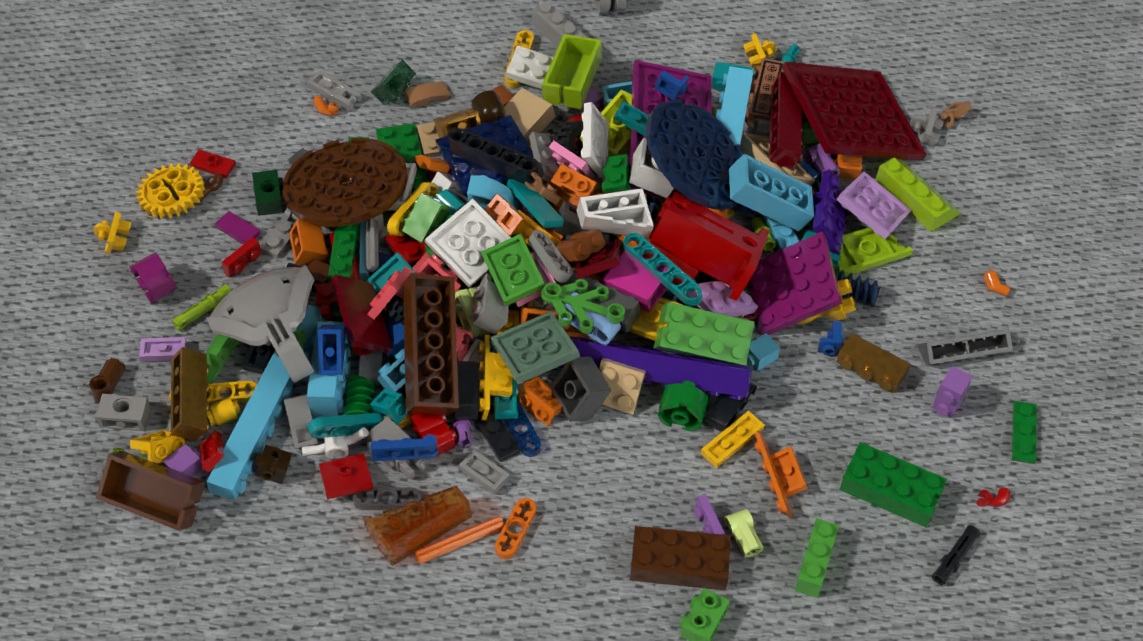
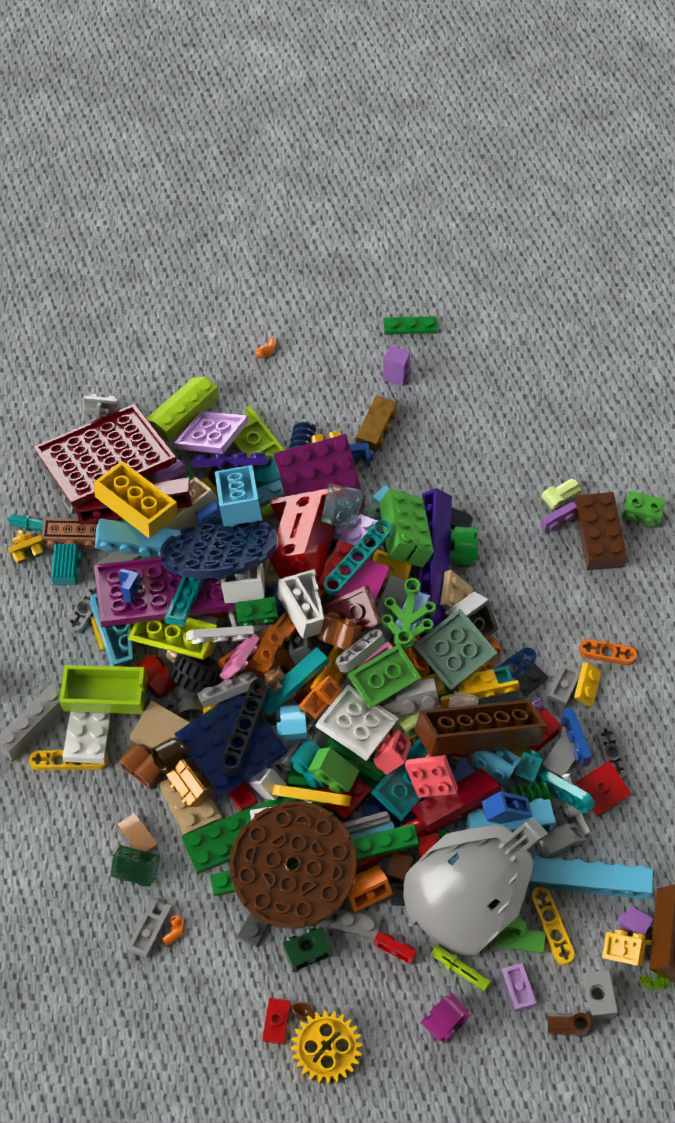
camera: 100 degrees left, 5 degrees up
(119, 226) = (395, 1086): yellow hips -> none
(189, 394) = (572, 933): pearl gold brick -> none
(211, 450) = (618, 900): red plate -> none
(223, 412) = (571, 909): yellow brick -> none
(237, 228) = (355, 968): magenta tile -> none
(272, 464) = (613, 847): dark brown brick -> none
(417, 524) = (634, 719): clear orange wedge -> none
(432, 163) = (246, 791): orange slope -> none
(460, 539) = (633, 693): orange axle -> none
(472, 347) = (462, 699): none -> clear brick
(479, 494) = (587, 684): none -> yellow plate
(729, 267) = (342, 506): none -> clear light blue slope
(732, 439) = (481, 514): yellow plate -> none
(769, 96) = (135, 499): none -> yellow brick
(784, 473) = (499, 472): orange bracket -> none
(816, 558) = (569, 443): bright green brick -> none
(893, 484) = (489, 401): green piece -> none
(954, 111) = (74, 386): medium nougat plate -> none
(955, 555) = (539, 362): black pin -> none
(966, 347) = (340, 365): dark grey brick -> none
(999, 500) = (477, 338): red arm -> none

